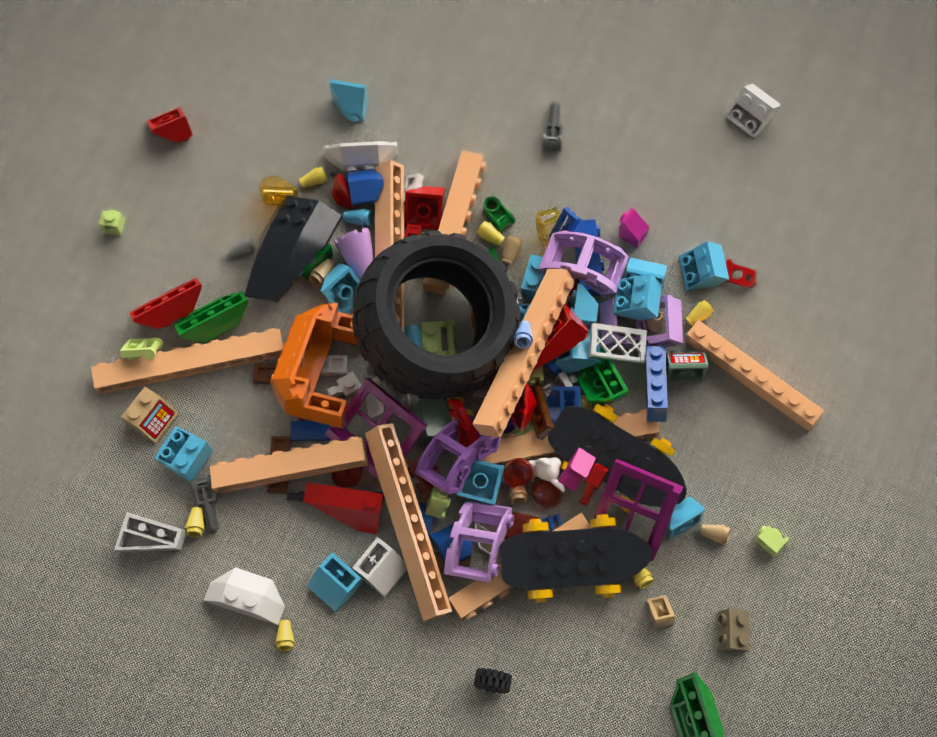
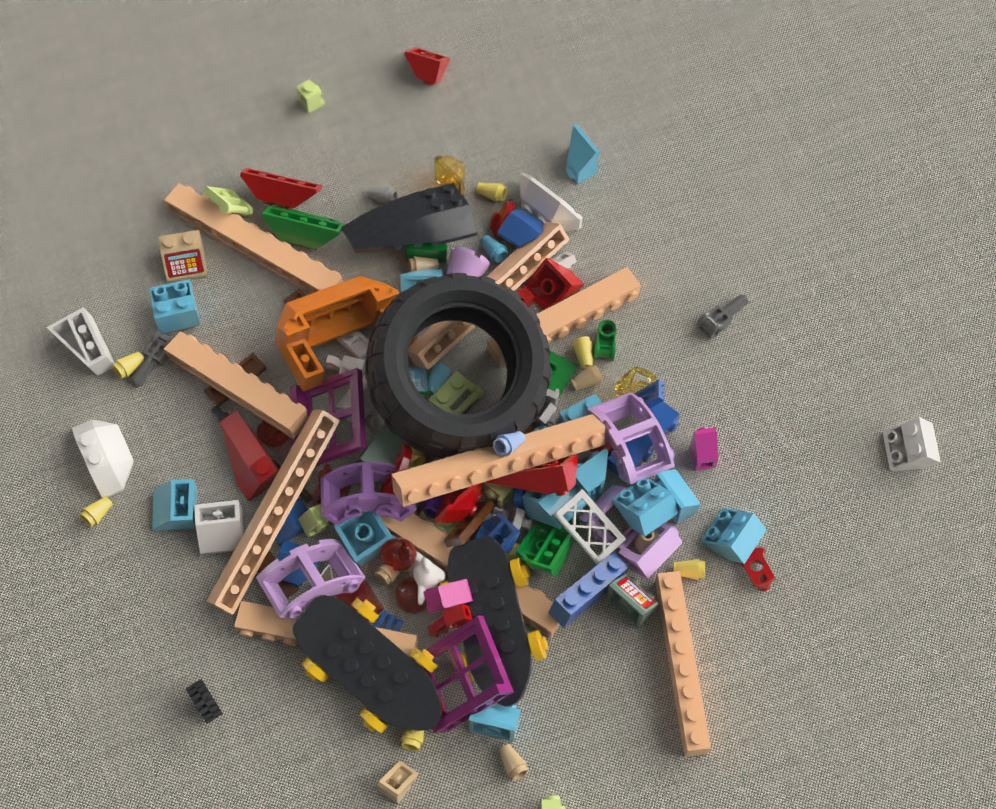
camera: 40 degrees right, 5 degrees down
(308, 431) = (281, 373): blue tile -> none

